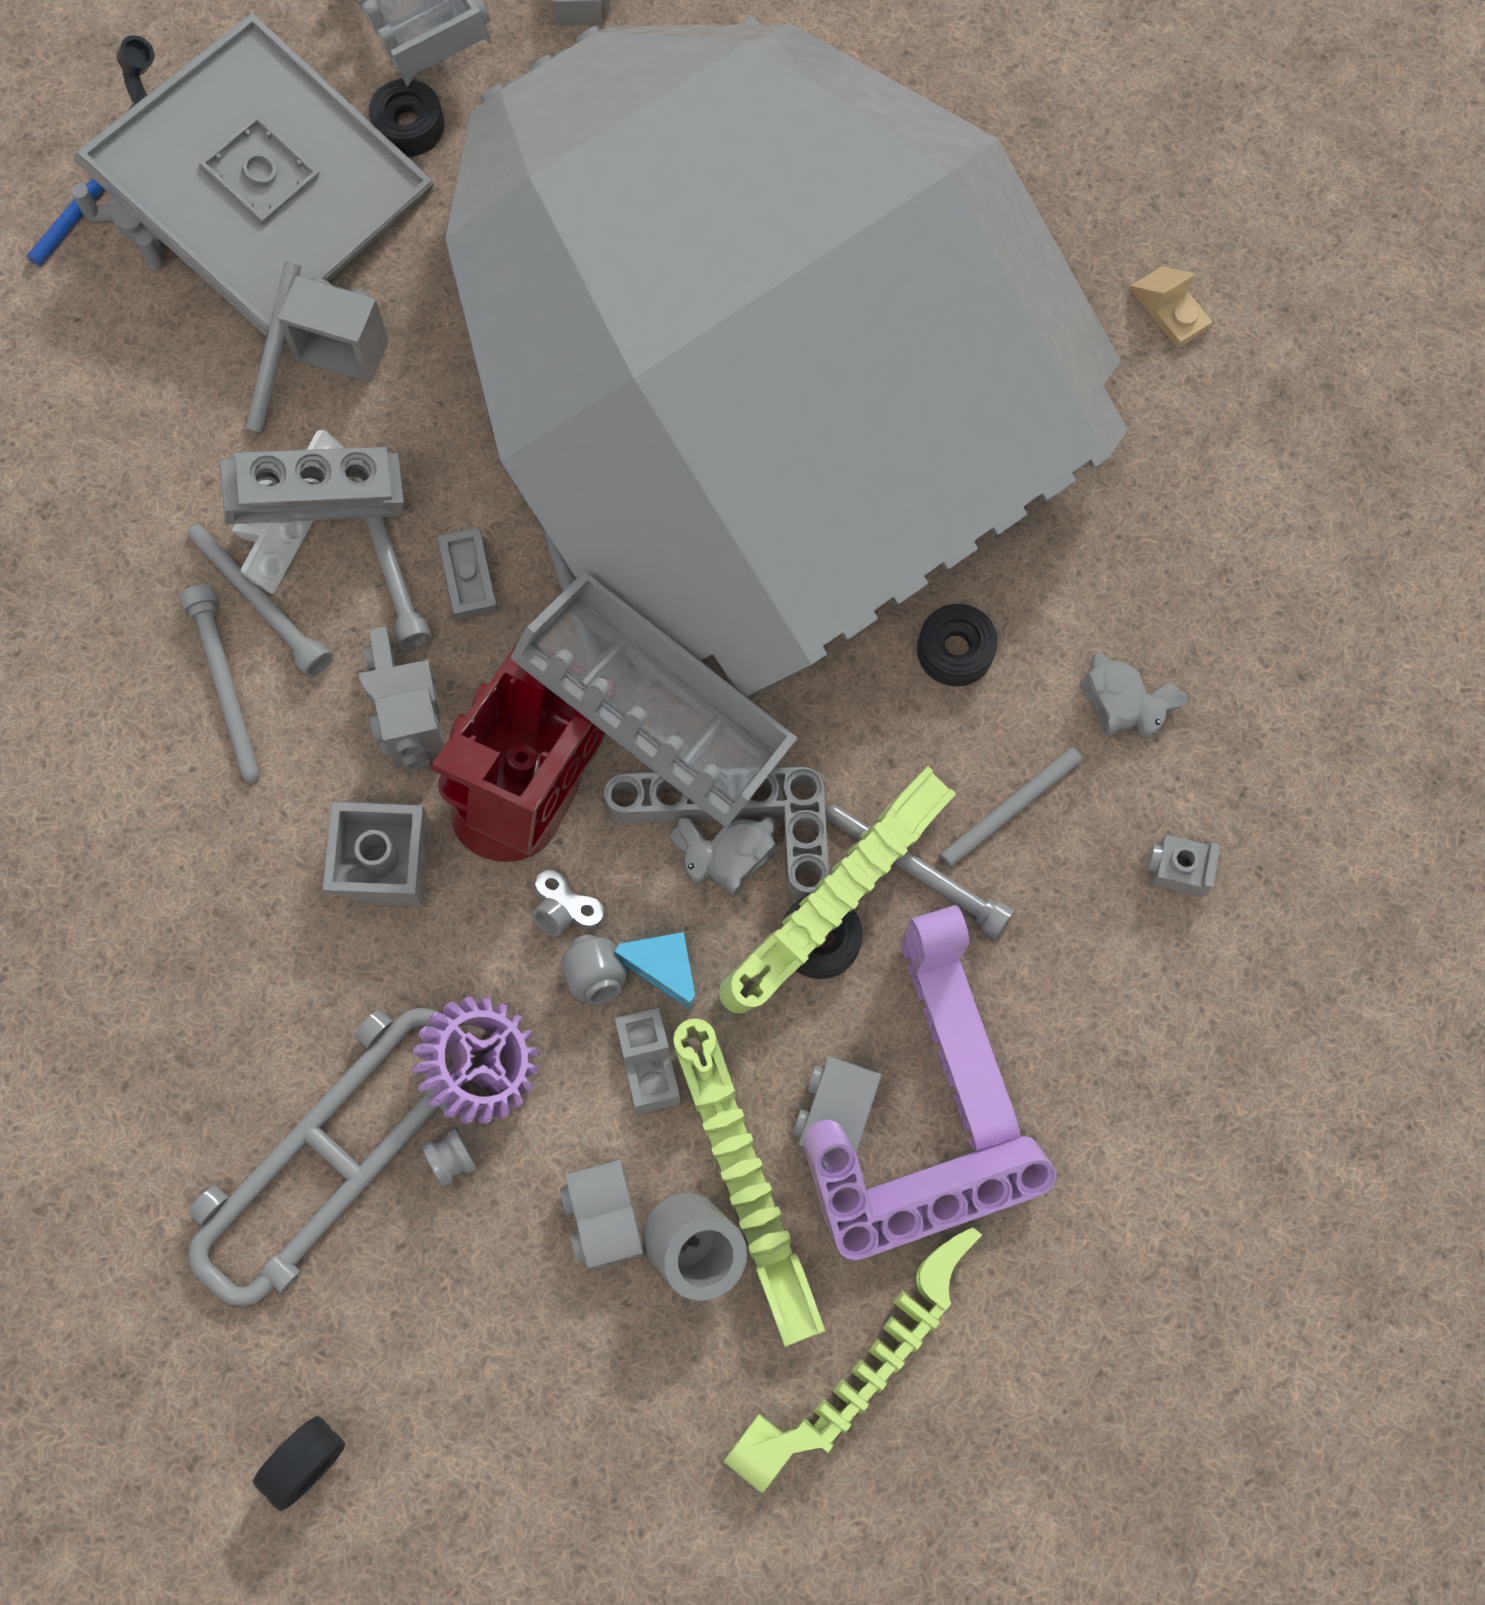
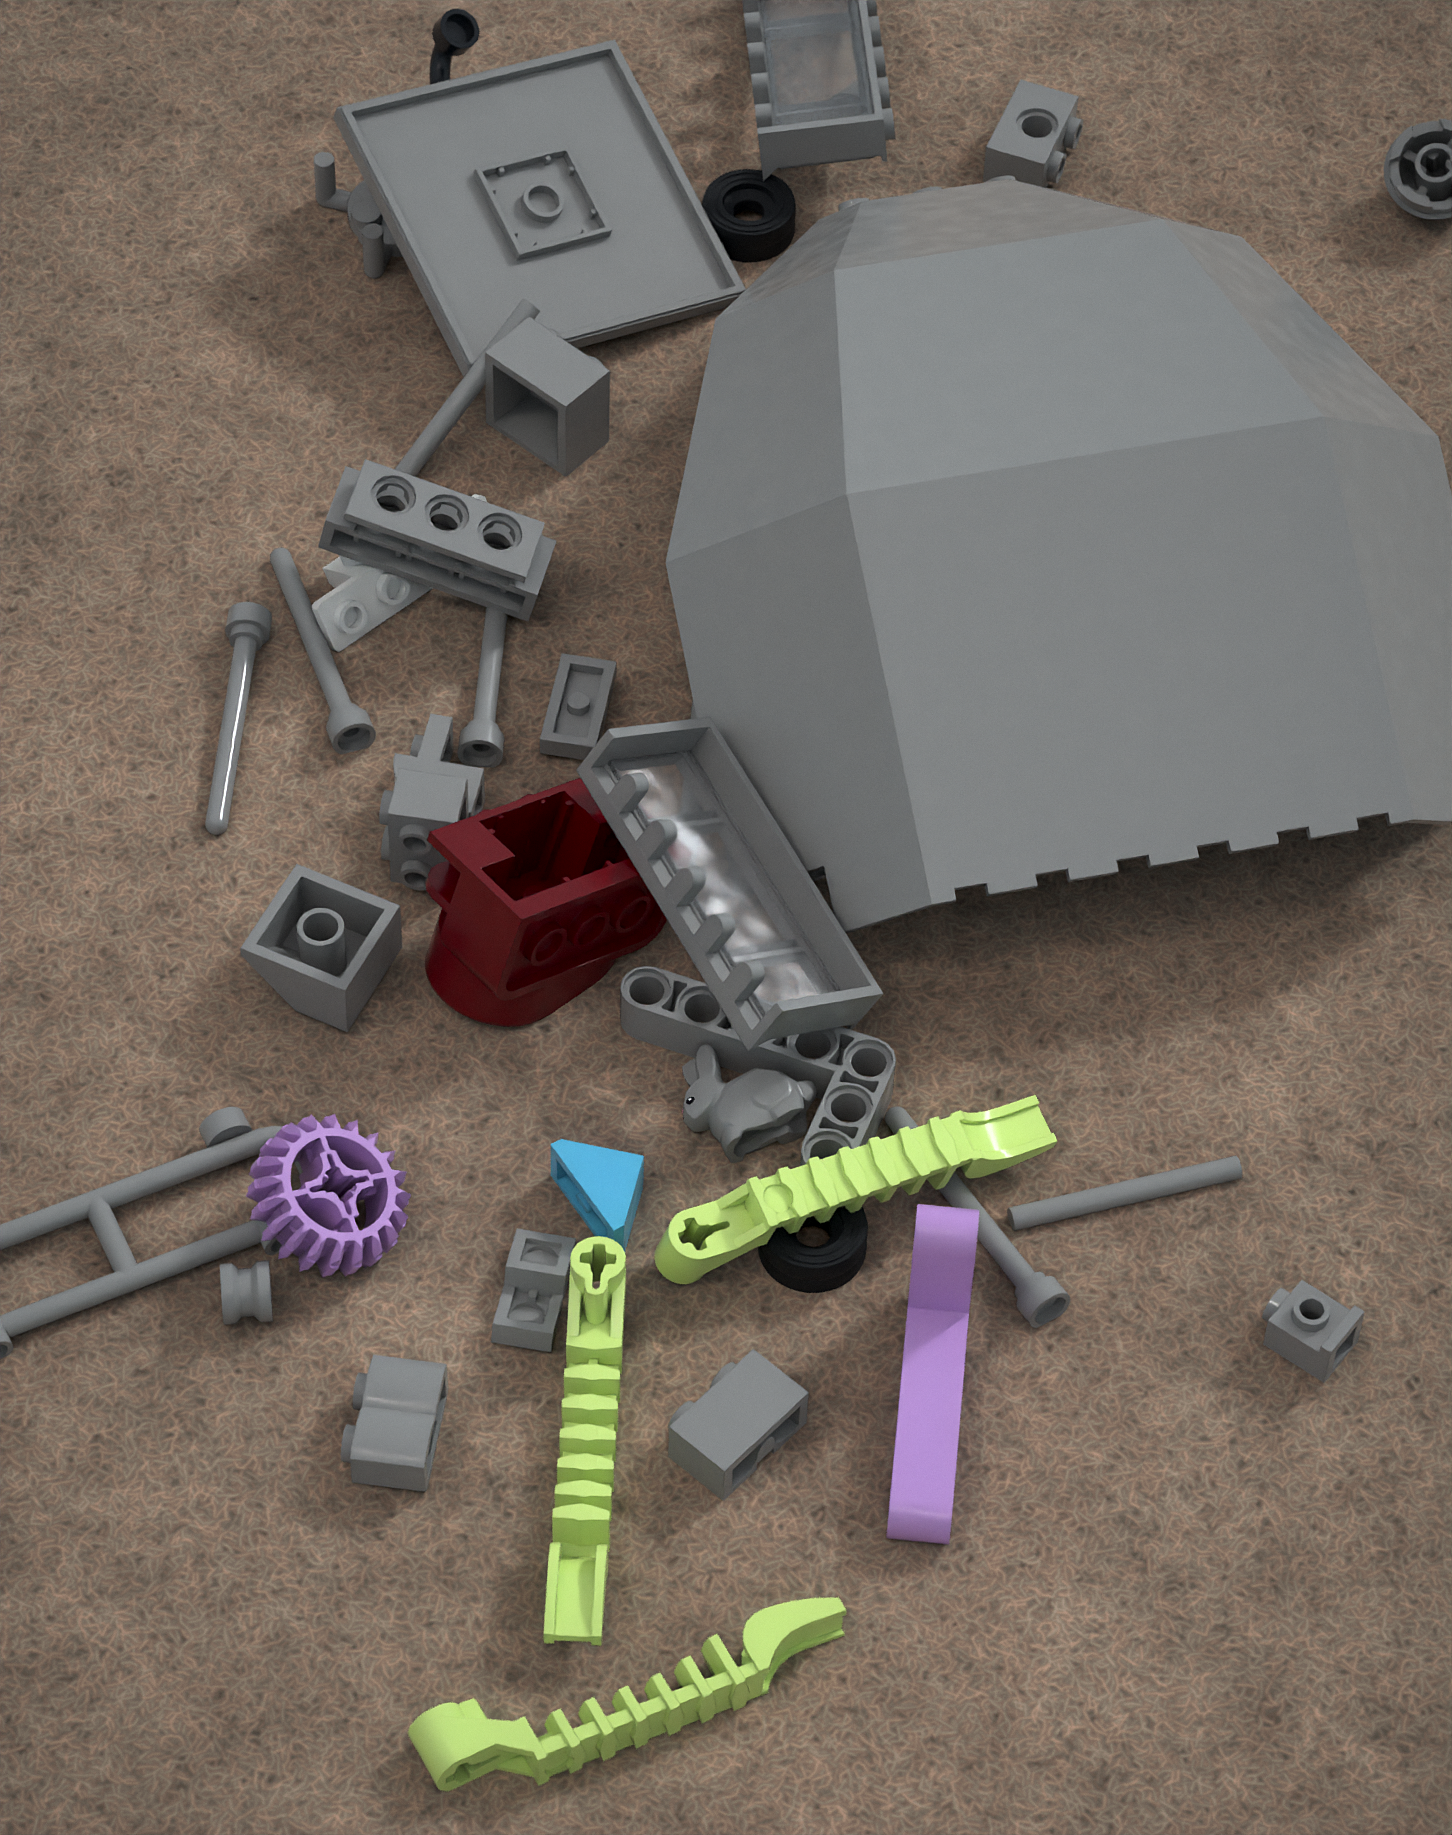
camera: 25 degrees right, 20 degrees down
(61, 227) = (287, 196): blue bar -> none
(562, 905) = (512, 1091): light grey piece -> none
(593, 970) = (516, 1164): light grey head -> none
(706, 1263) = (519, 1486): light grey piece -> none
(957, 621) = (1148, 963): black tyre -> none
(965, 1189) = (784, 1538): lavender beam -> none
(1122, 699) = (1326, 1127): light grey animal -> none

